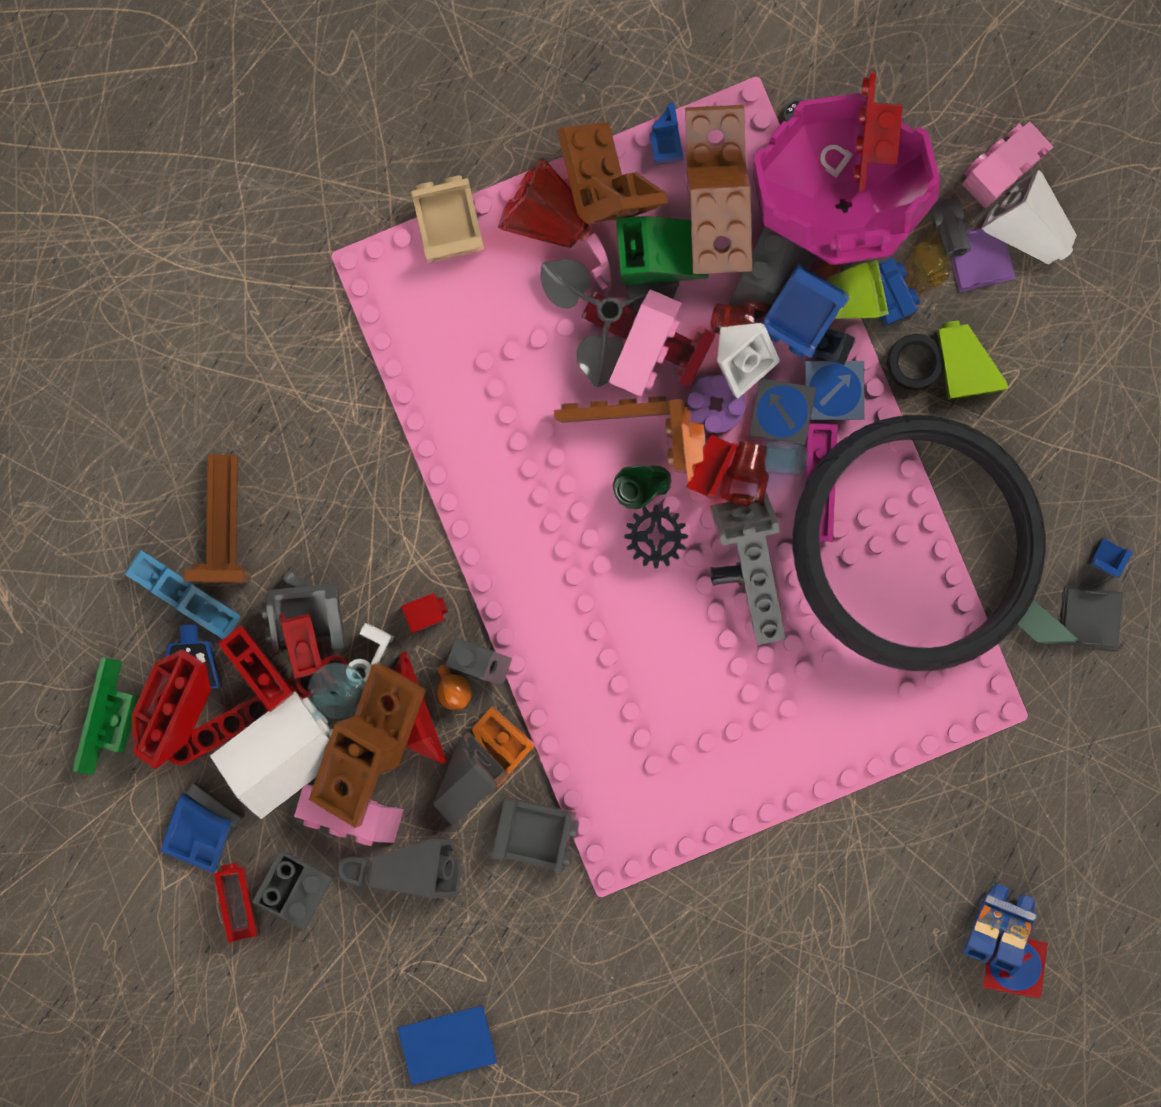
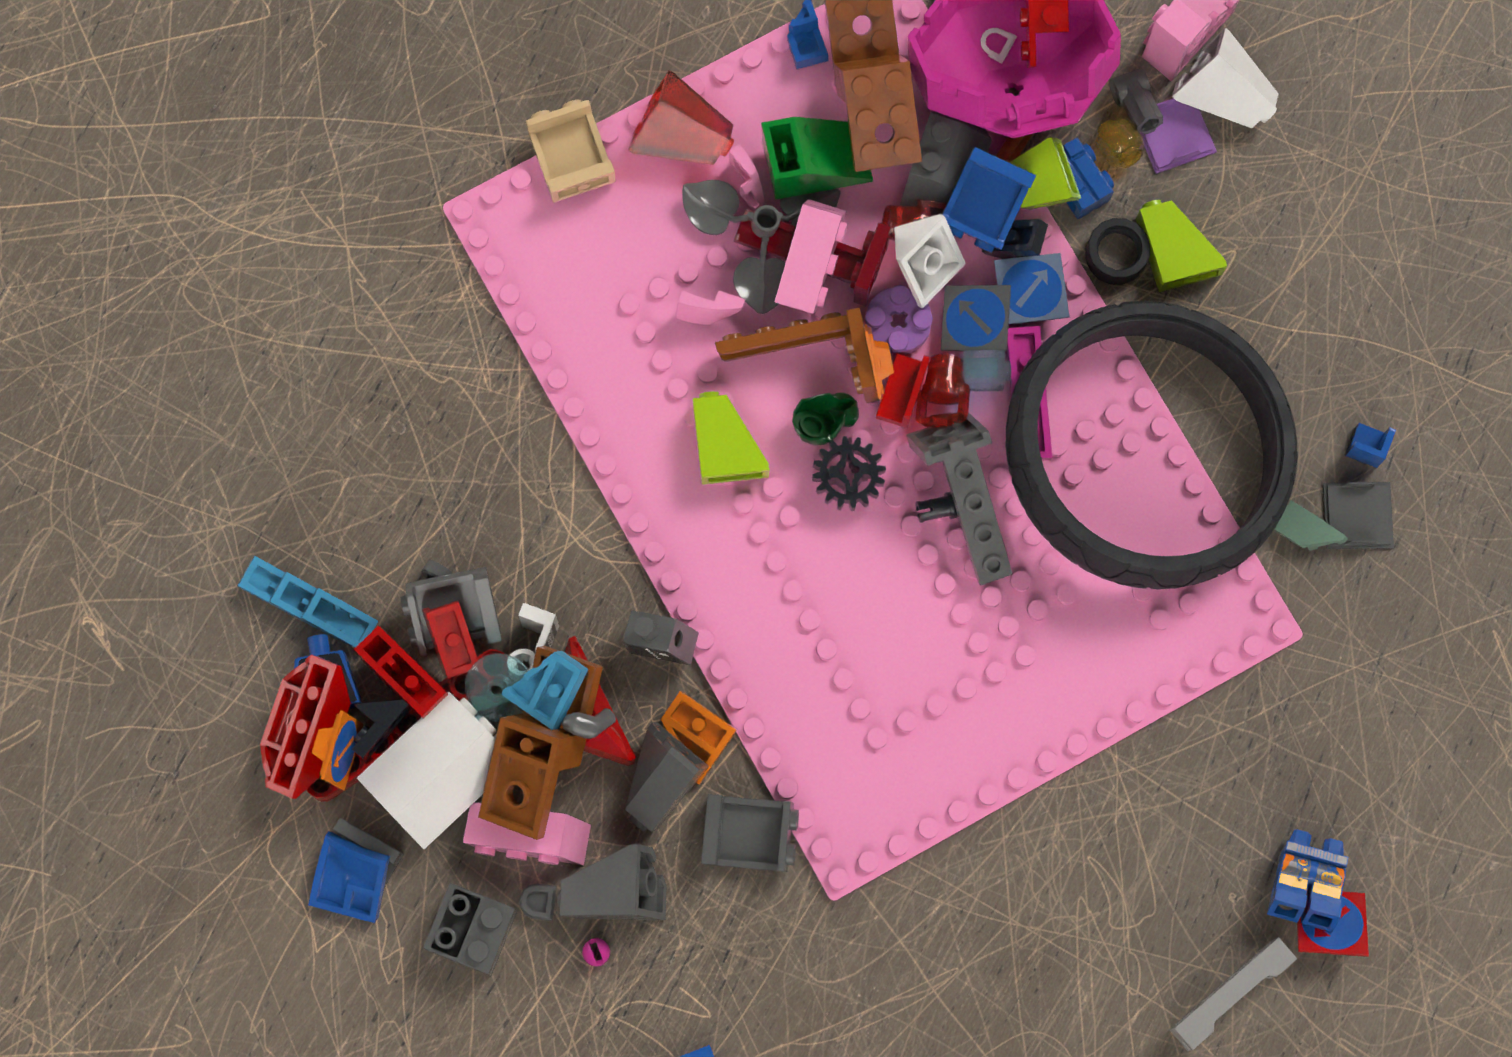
camera: 15 degrees left, 10 degrees down
(107, 718) = (231, 755): green bracket -> none
(195, 731) = (335, 749): none -> orange piece
(221, 526) = (349, 560): dark orange bracket -> none
(236, 903) = (404, 955): red window -> none
(238, 707) = (386, 717): none -> black slope
(377, 703) = (548, 689): none -> dark azure wing
(402, 914) = (588, 954): none -> dark pink hinge
(408, 738) = (587, 725): none -> dark grey arm
(425, 612) = (591, 591): red brick -> none
(453, 690) = (634, 676): orange piece -> none
(546, 378) = (704, 311): none -> bright pink slope
(551, 496) = (725, 443): none -> lime slope
(597, 179) = (734, 86): dark orange bracket -> none
(892, 1034) = (1200, 1020): none -> light grey piece

